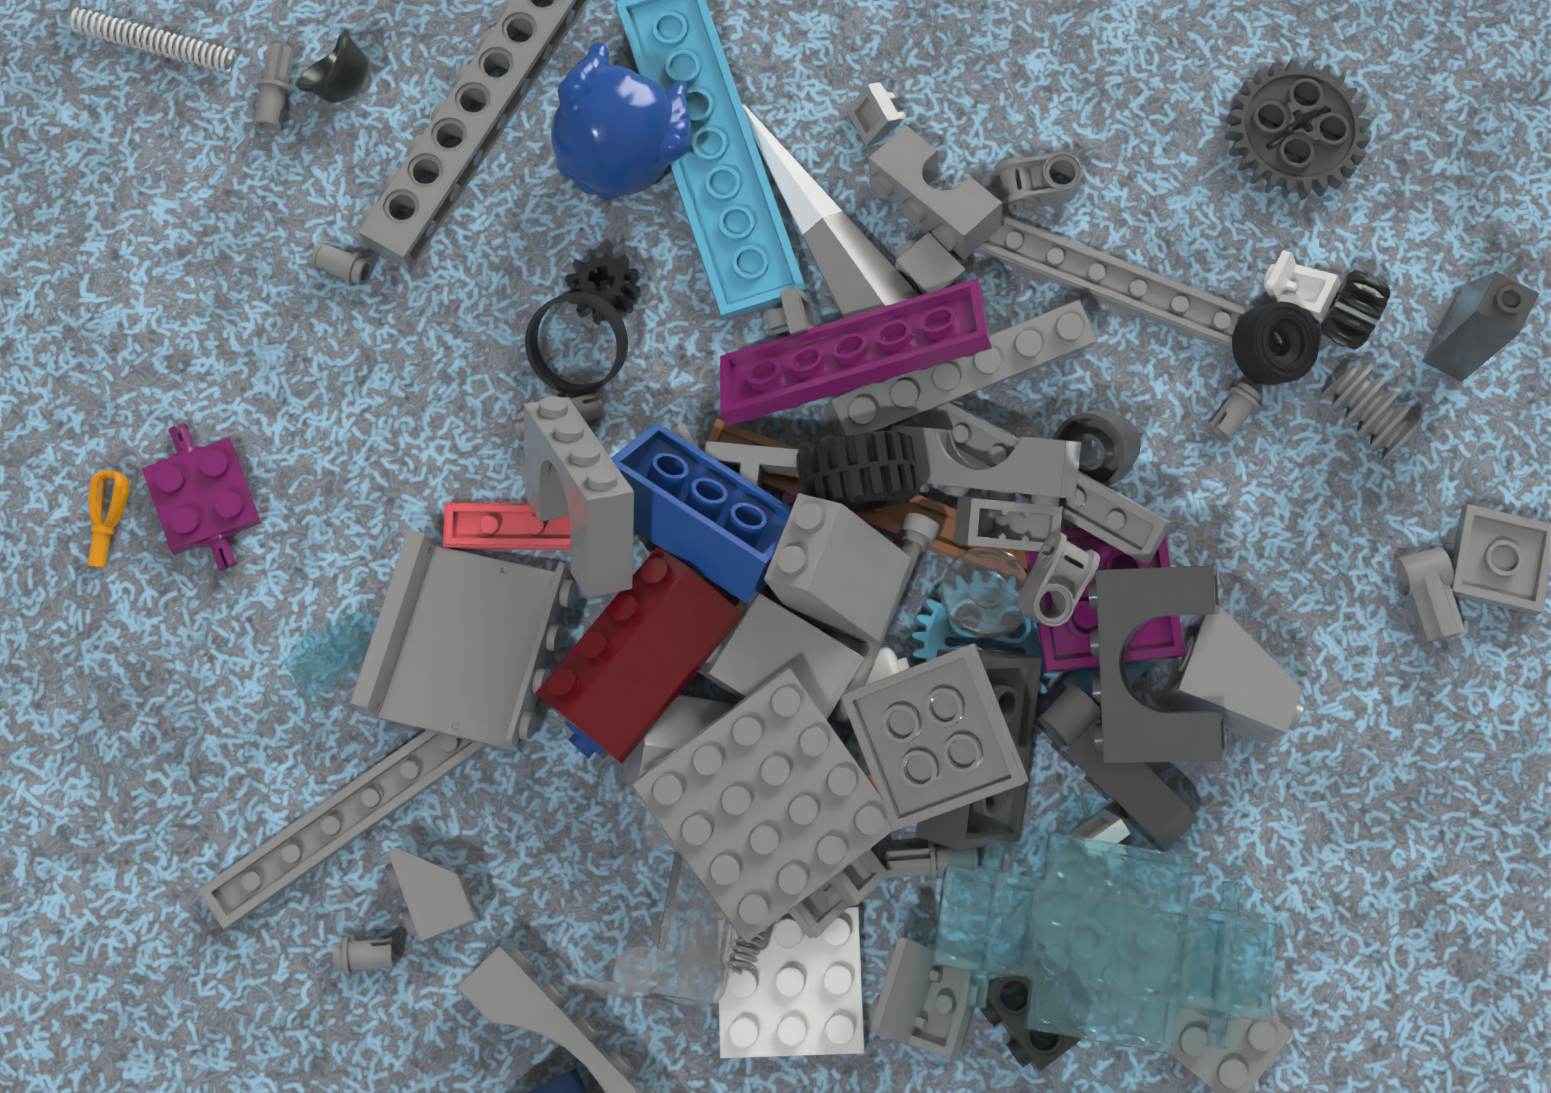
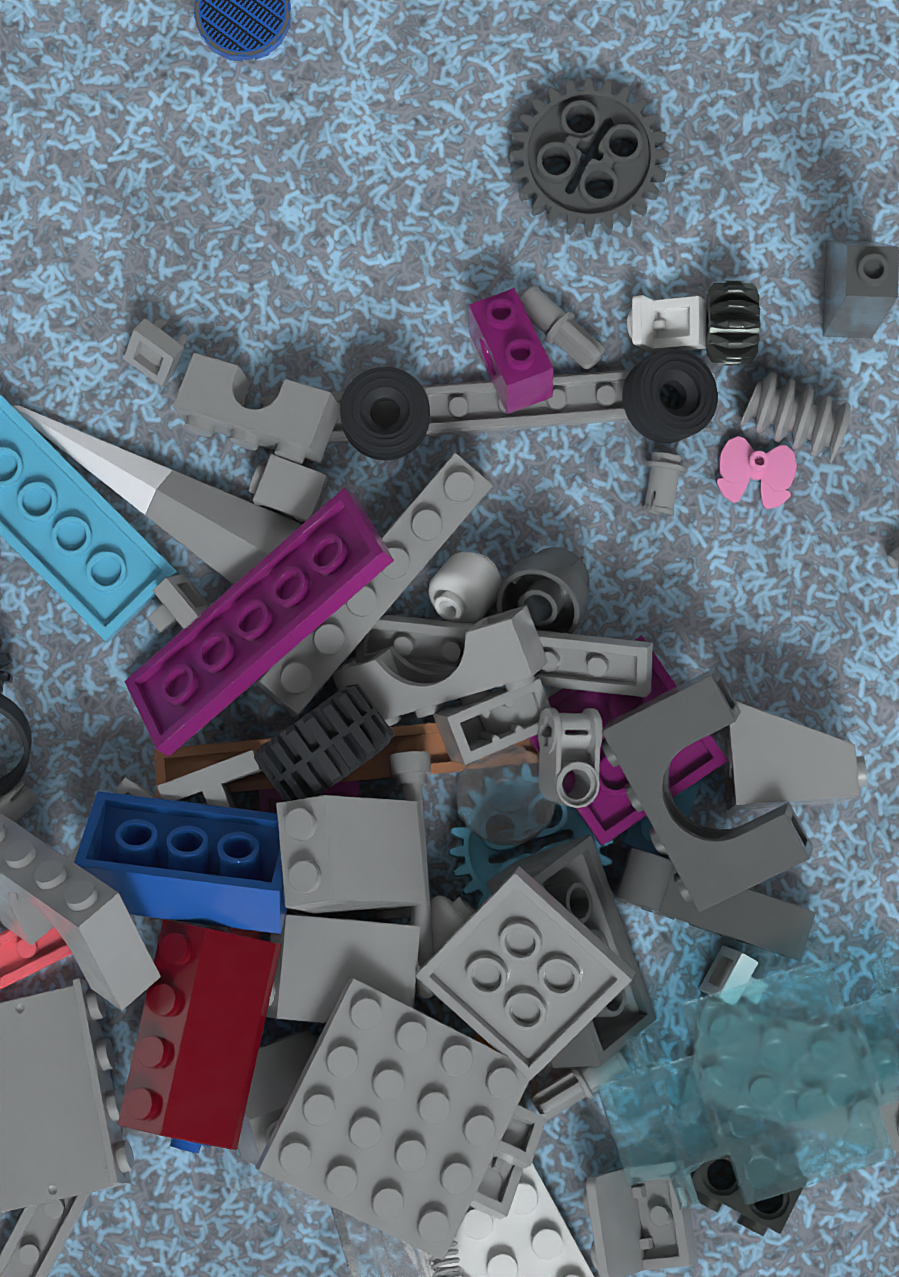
camera: 25 degrees left, 5 degrees up
(1033, 411) = (465, 587): none -> white head
(1034, 181) = (351, 343): light grey piece -> none
(1041, 221) = (385, 385): none -> black tyre
(1162, 245) = (510, 350): none -> magenta brick
(1209, 249) = (561, 328): none -> light grey axle
(1307, 427) = (741, 463): none -> bright pink piece

